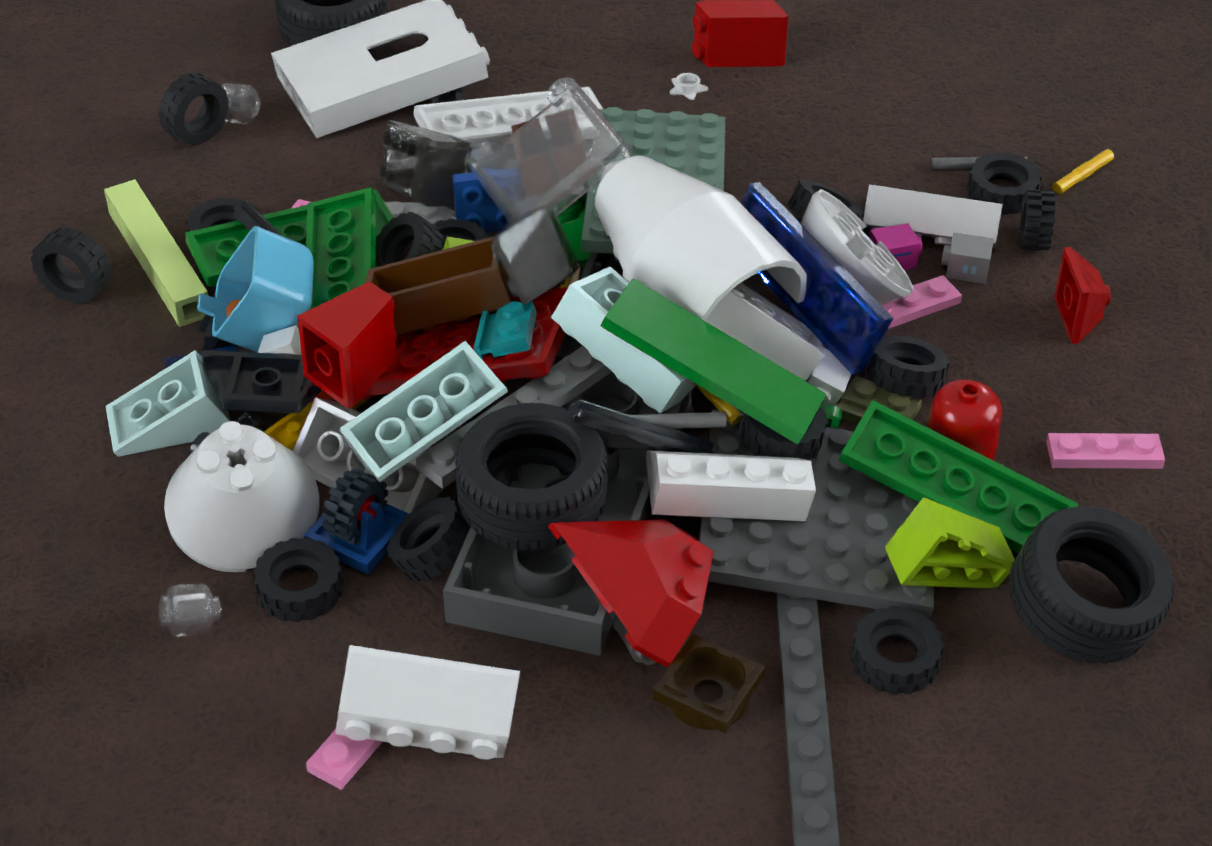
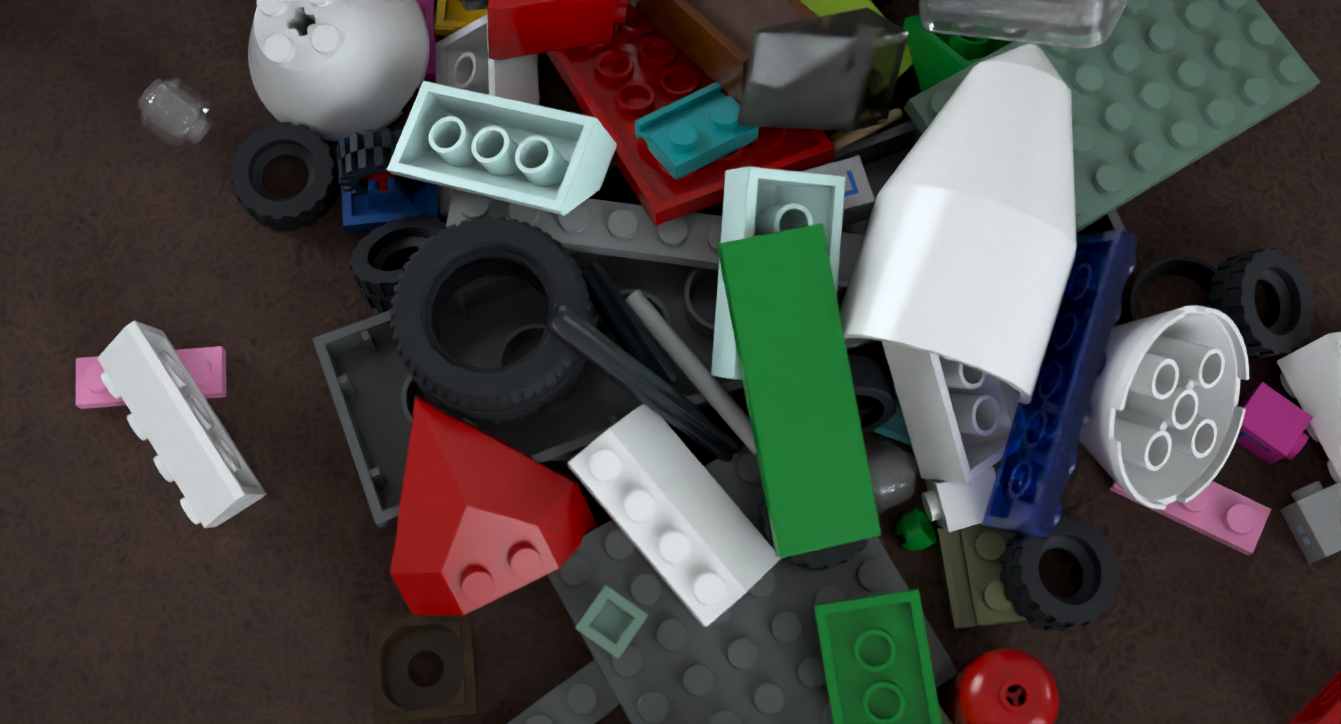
camera: 55 degrees right, 30 degrees up
(769, 546) = (611, 621): none -> sand green plate

